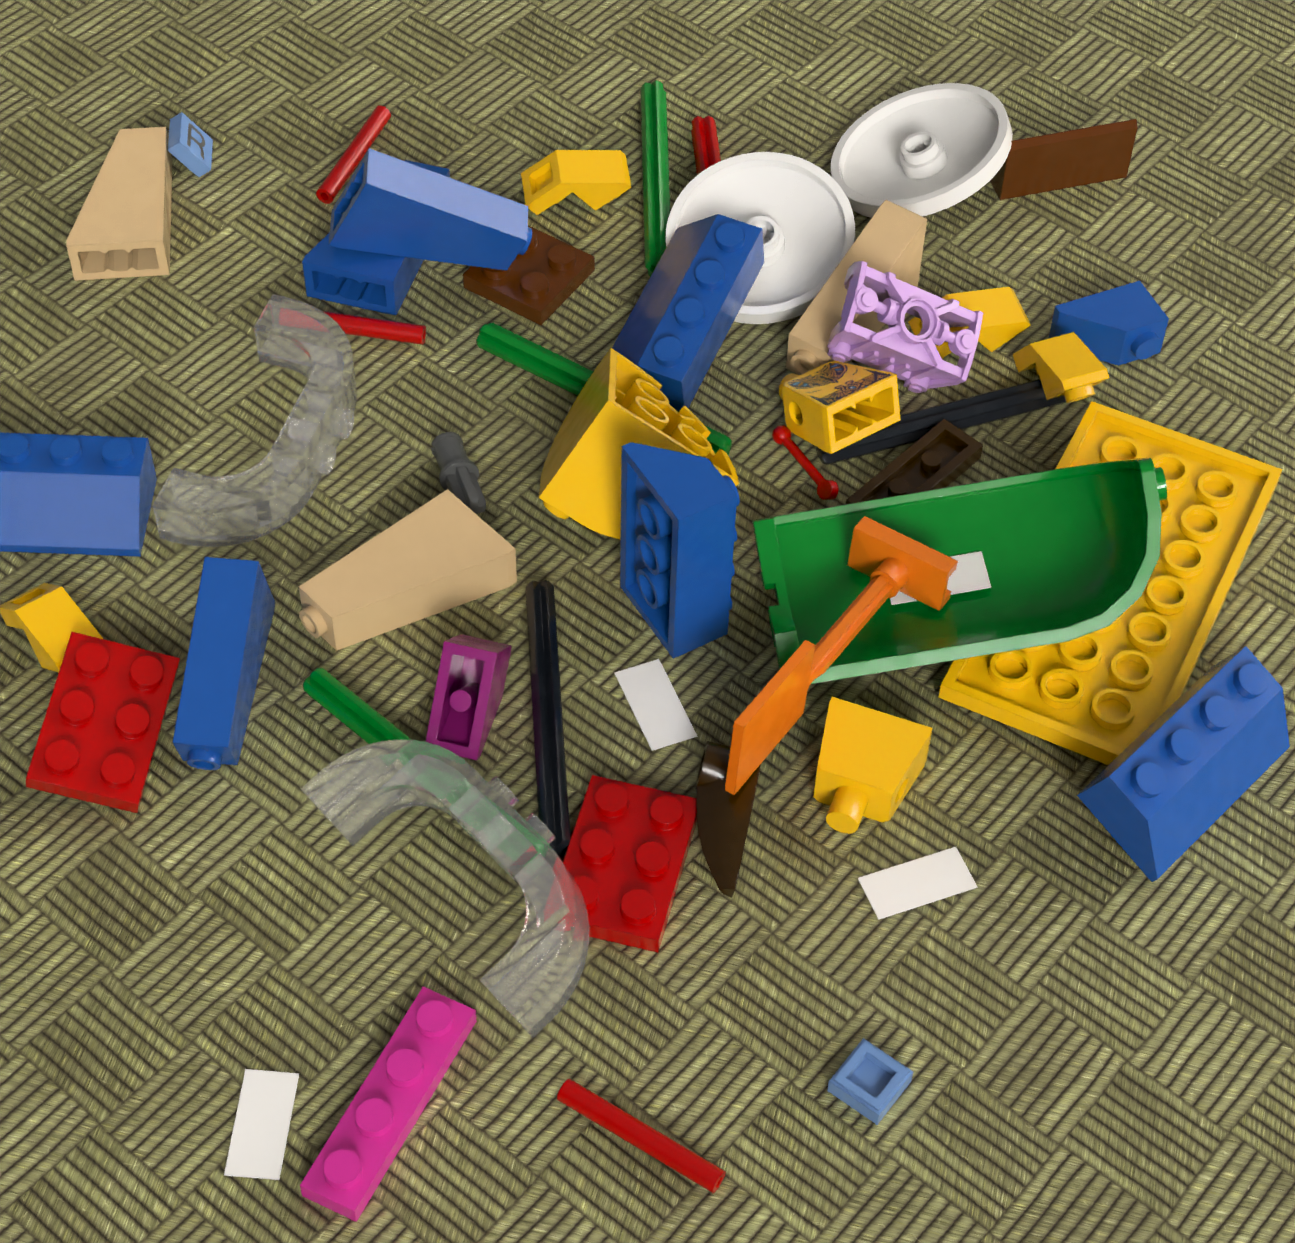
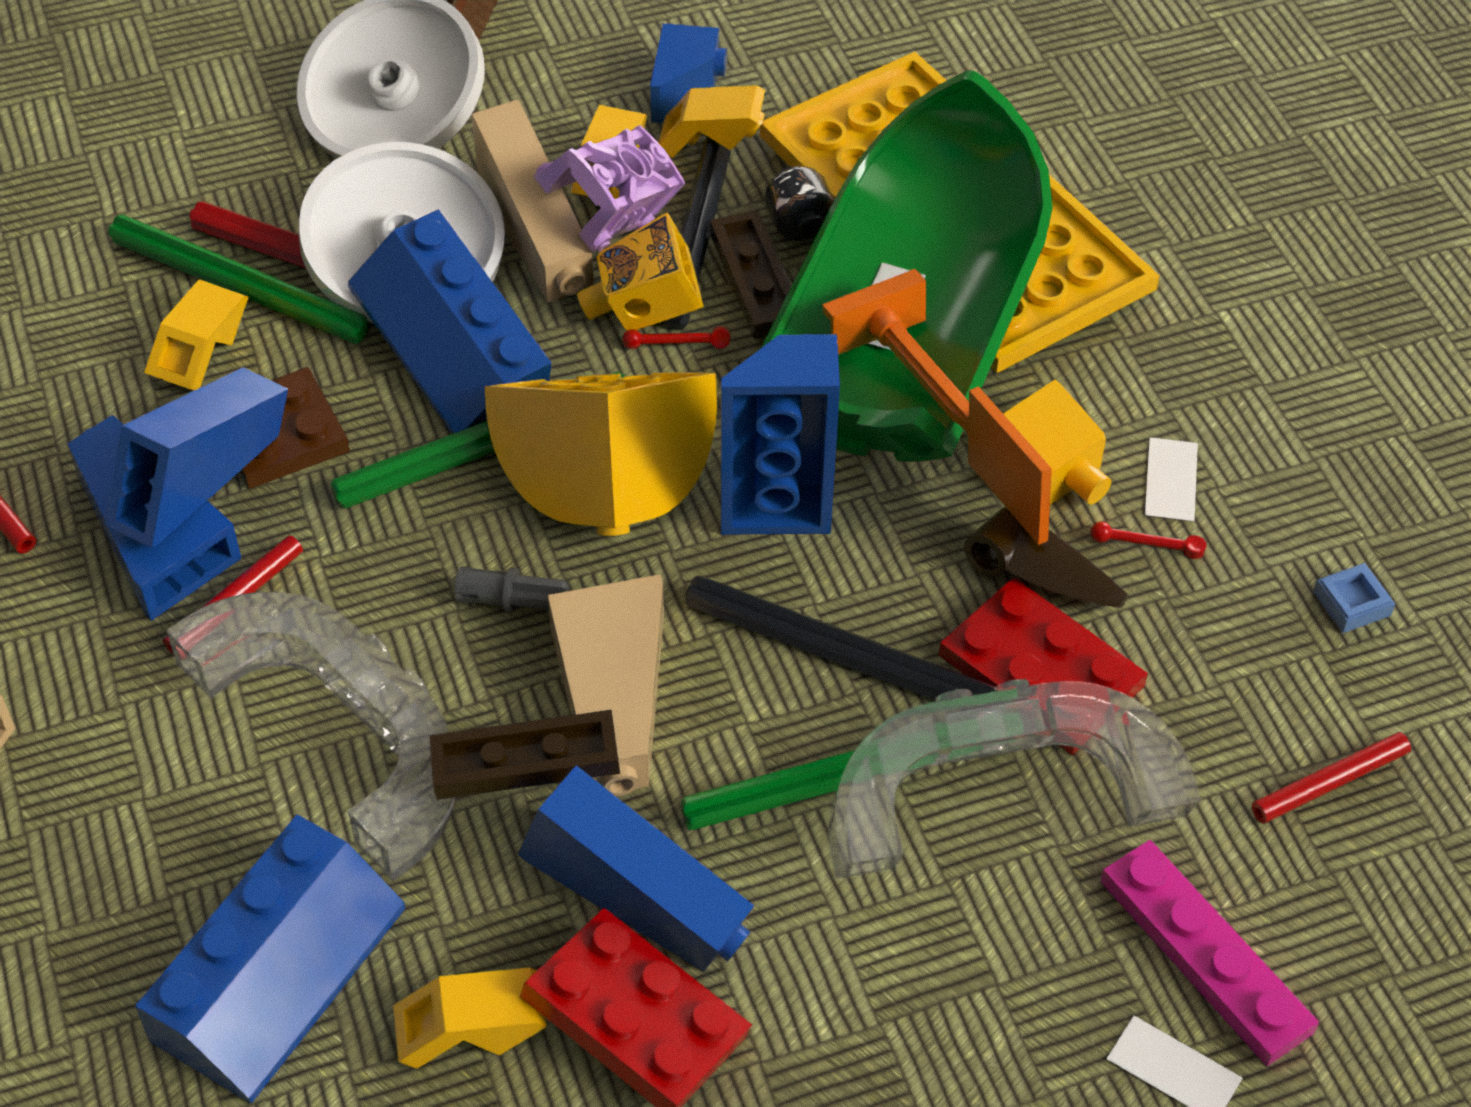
camera: 60 degrees left, 0 degrees up
(274, 538) = (523, 754): none -> dark brown plate
(467, 694) = (793, 692): magenta slope -> none
(655, 704) = (875, 568): white sticker -> none
(843, 928) = (1193, 546): none -> red hinge
(1014, 456) = (798, 201): none -> black head
(1191, 763) = (1172, 243): blue slope -> none

